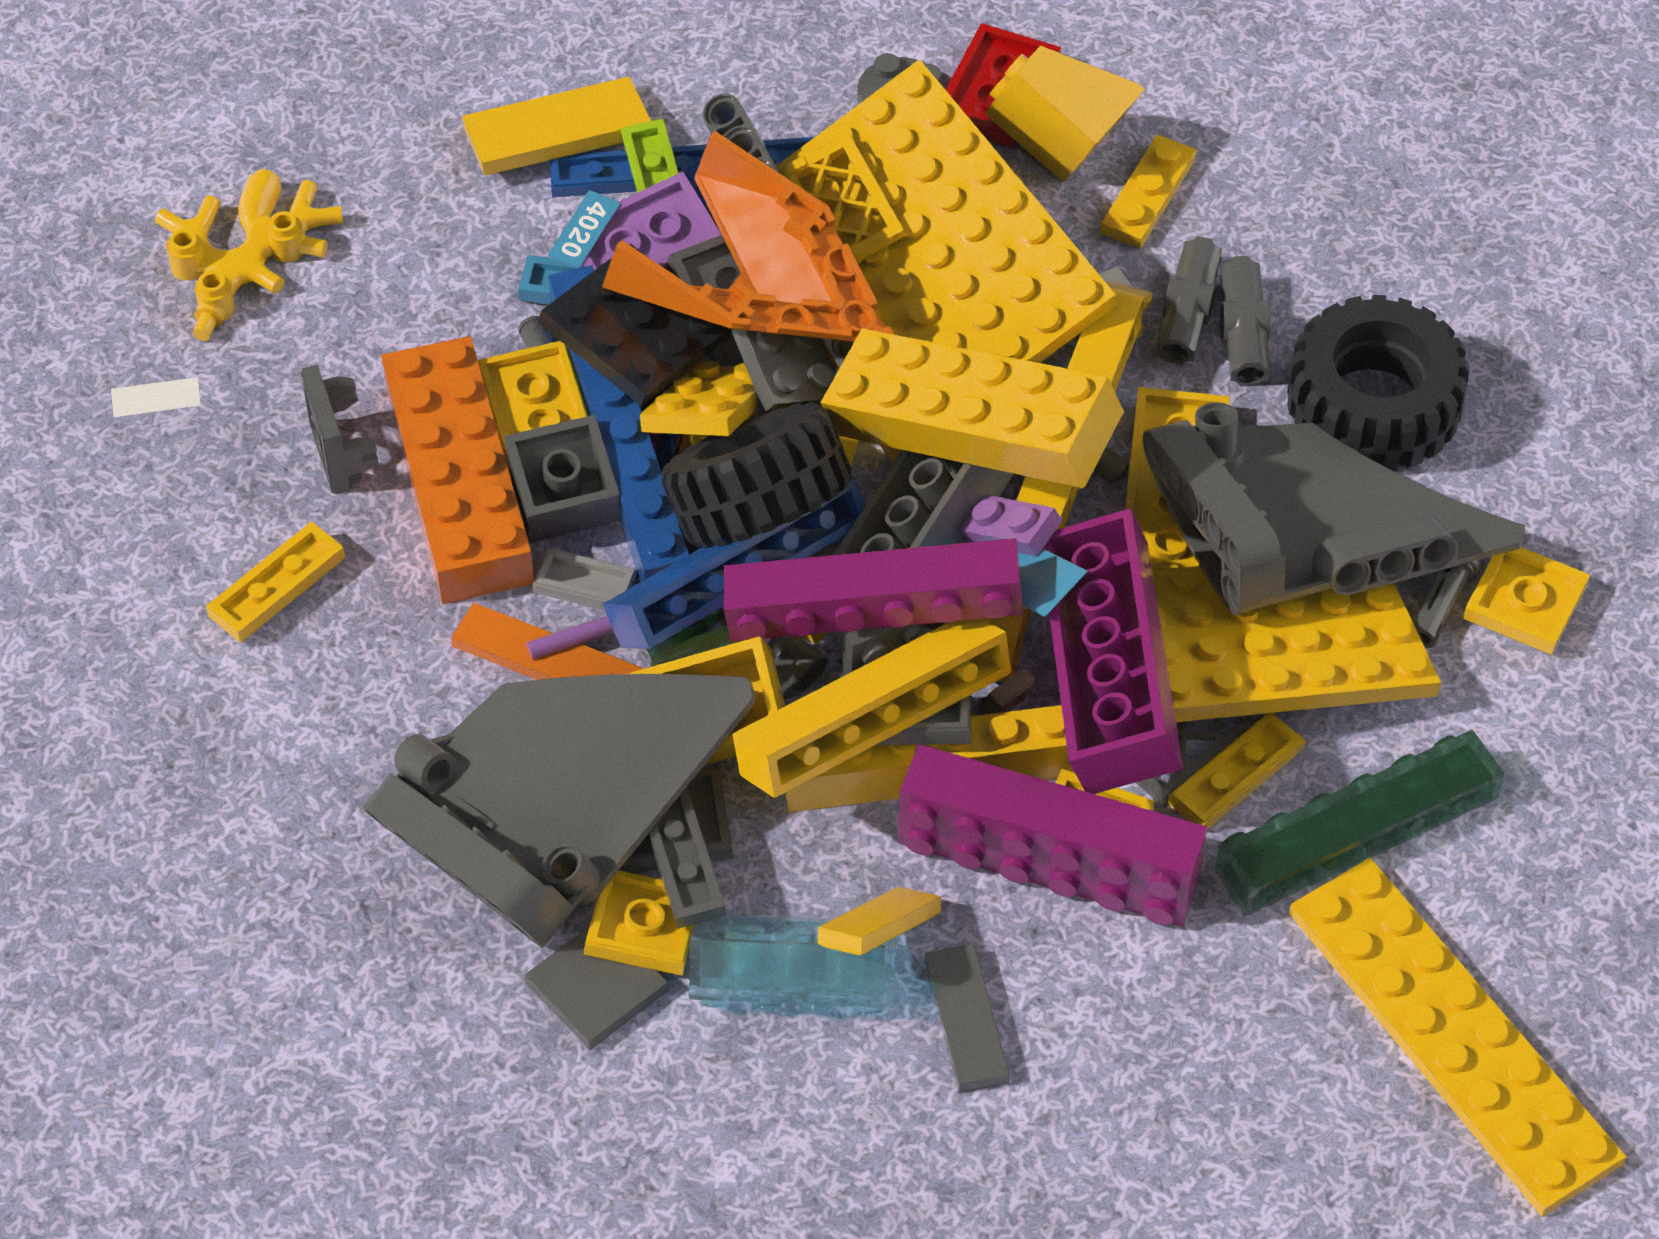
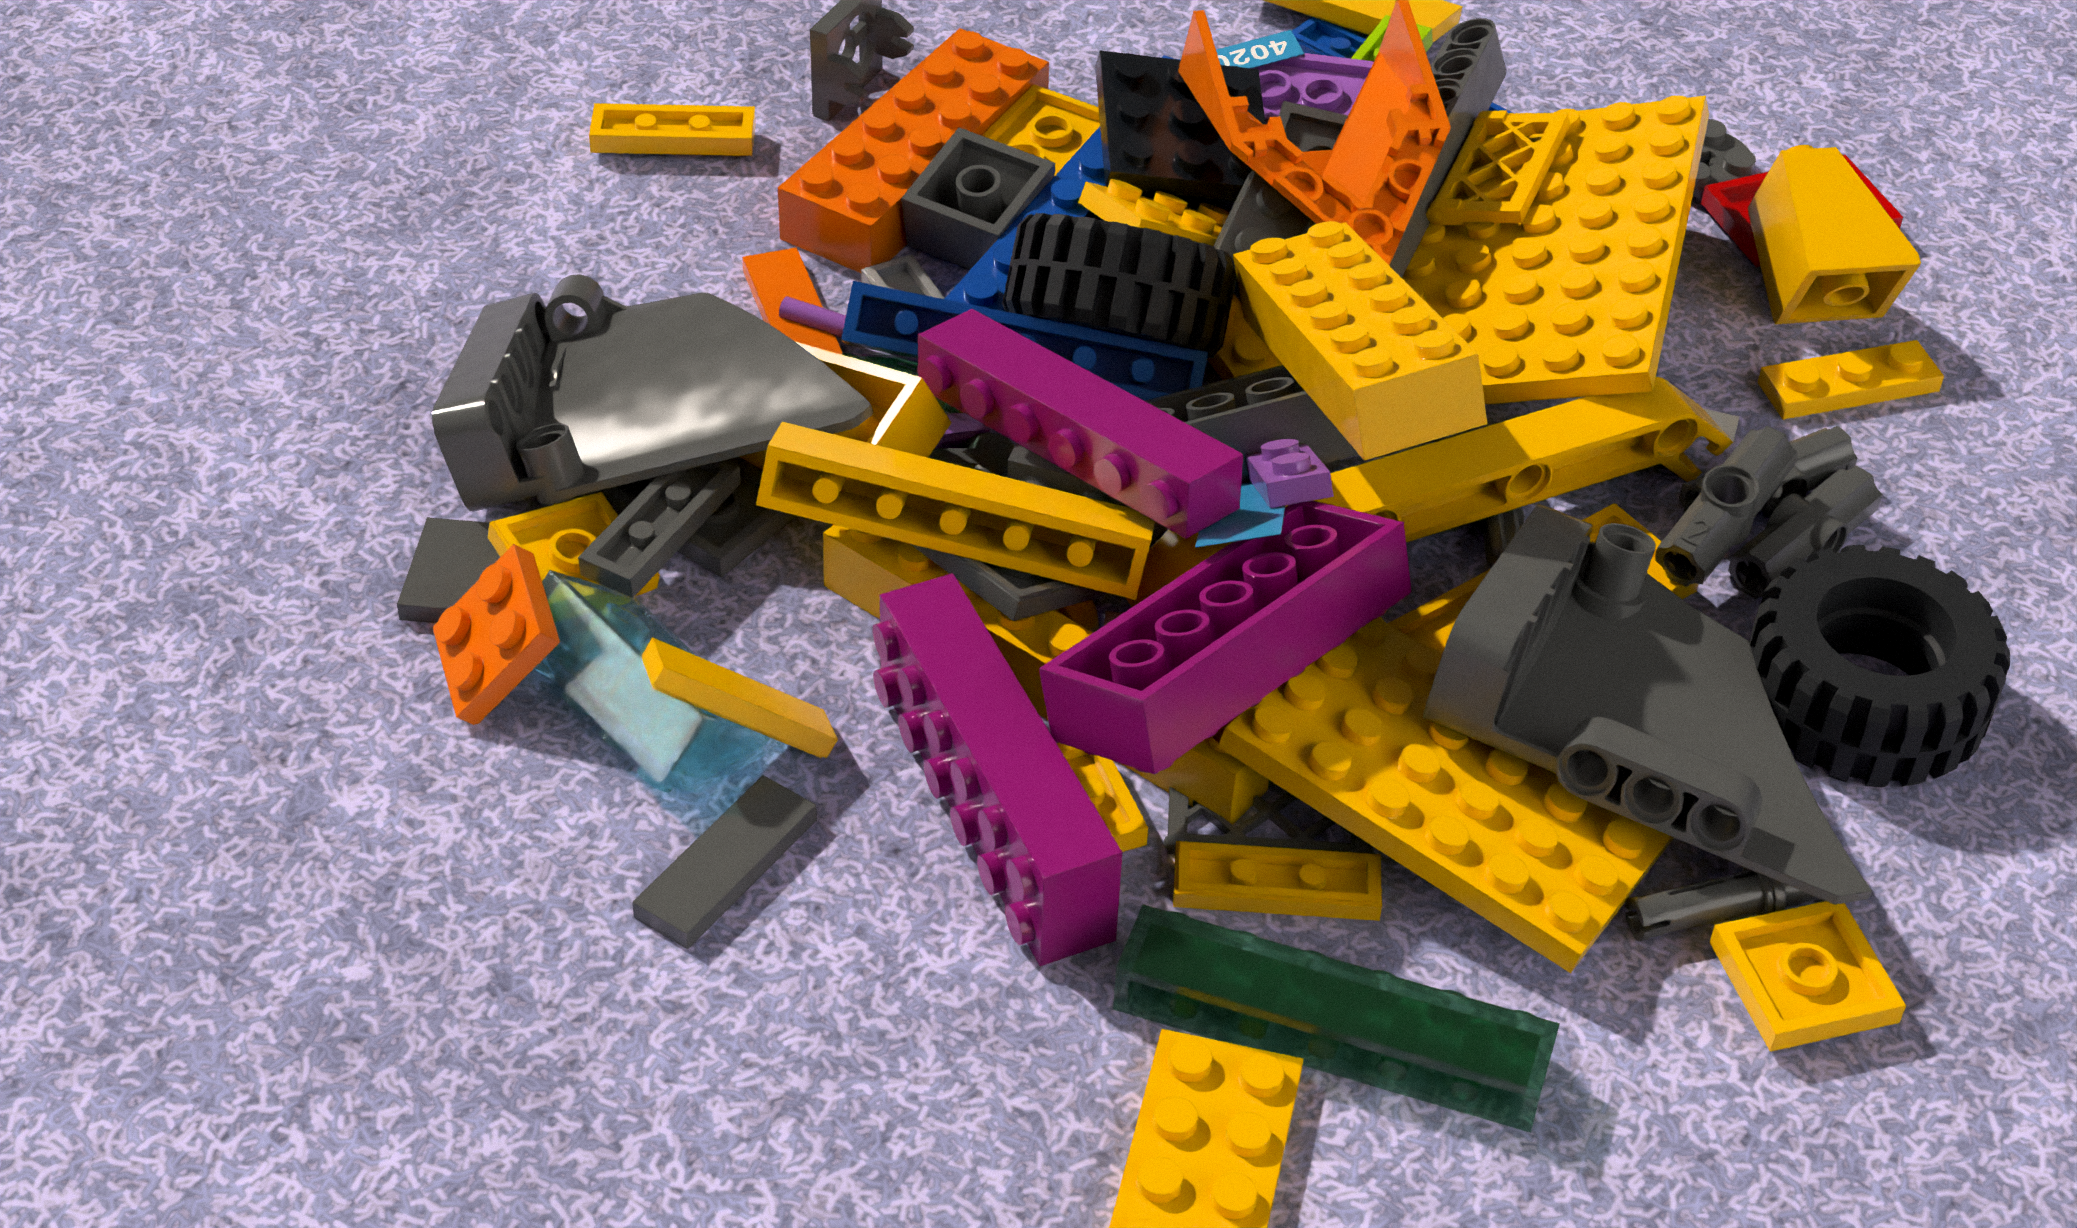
camera: 45 degrees right, 10 degrees down
(688, 1006) = (495, 634): none -> orange plate
(1209, 321) = (1726, 506): none -> dark grey piece

